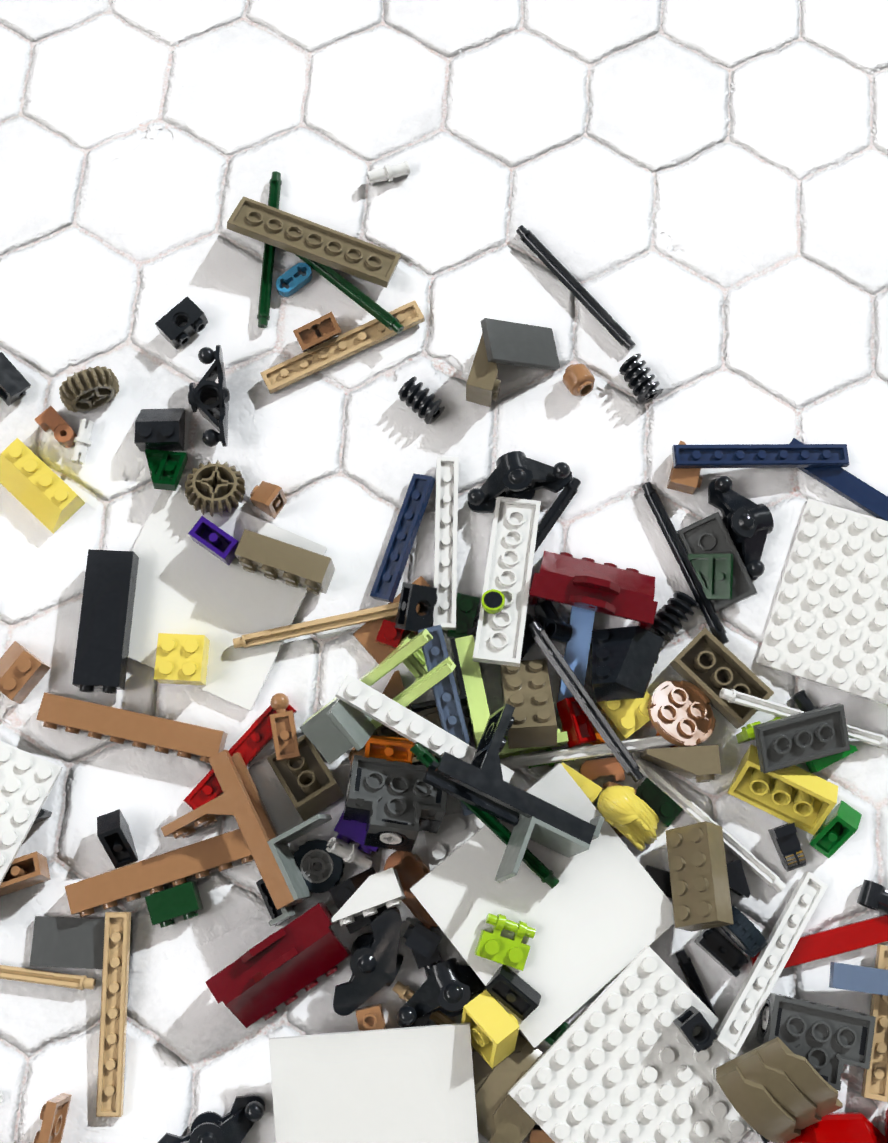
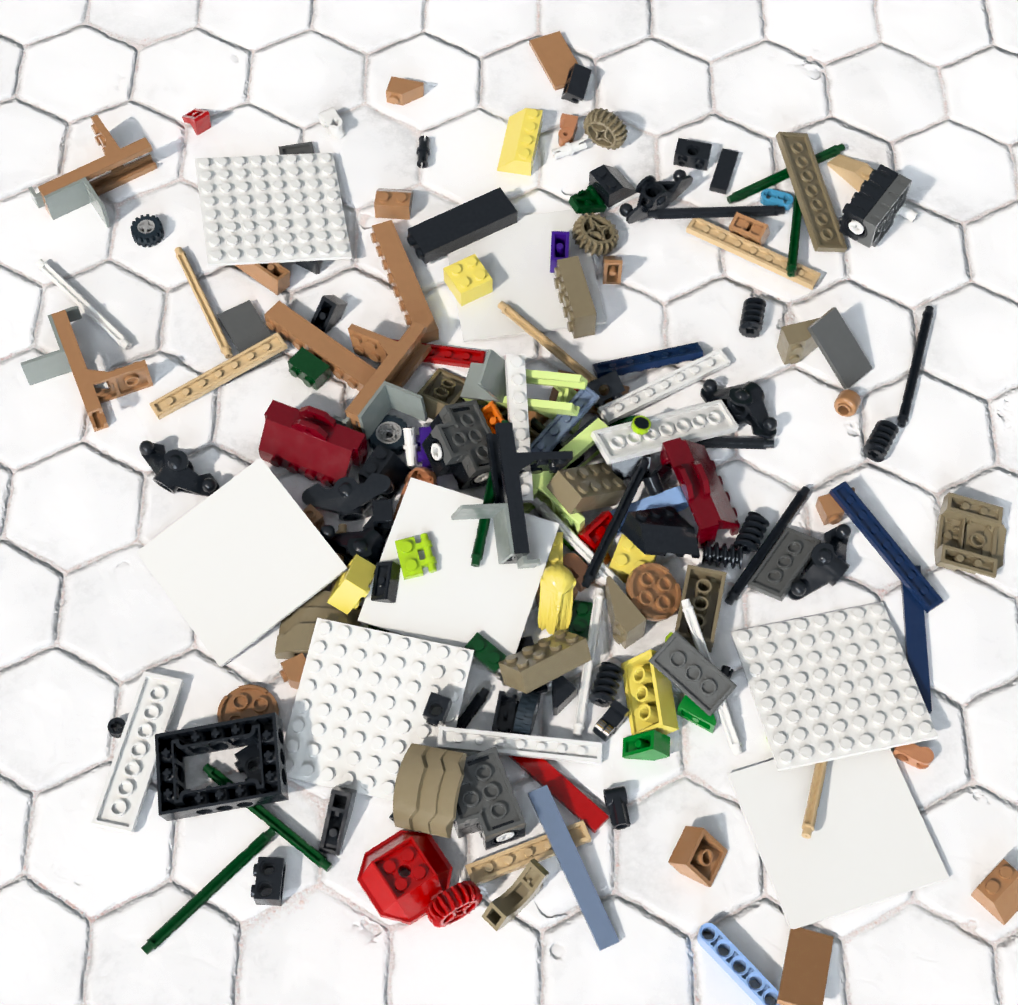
camera: 55 degrees right, 15 degrees down
(222, 306) = (723, 171): none -> black tile
(271, 350) = (715, 212): none -> black piece
(284, 729) = (460, 365): medium nougat plate -> none
(315, 185) = (851, 170): none -> tan slope
(376, 891) = (394, 464): white slope -> none
(383, 196) = (875, 206): none -> piece
(653, 932) = (485, 652): none -> dark green plate
(666, 570) = (751, 532): none -> black piece
(715, 574) = (772, 562): dark green wing -> none
(748, 824) = (605, 684): none -> black piece
(794, 374) = (969, 536): none -> dark tan slope

